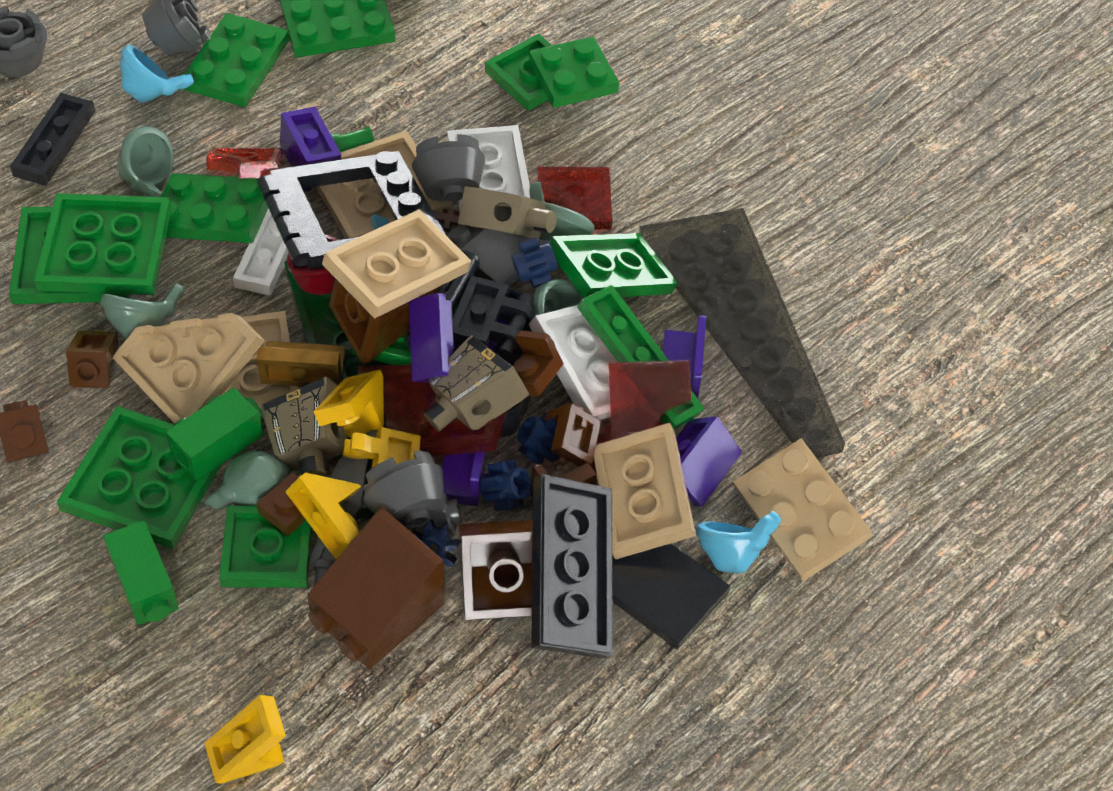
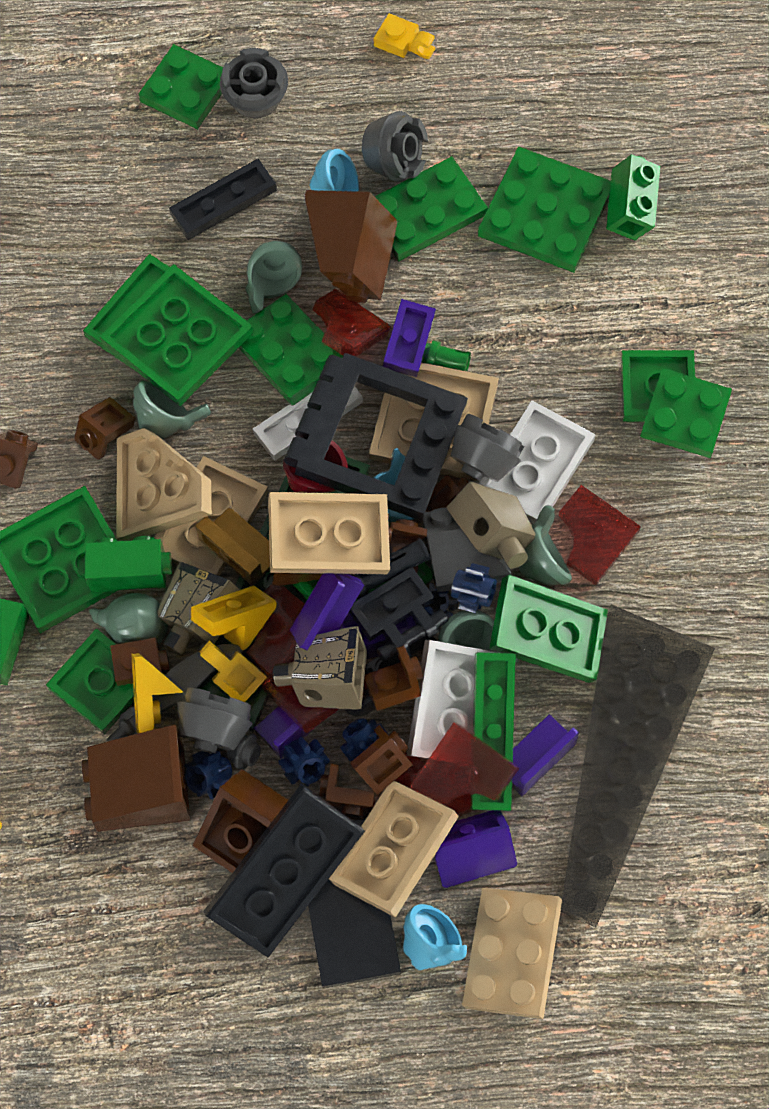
camera: 45 degrees right, 15 degrees up
(198, 94) = (352, 240): none -> reddish brown slope

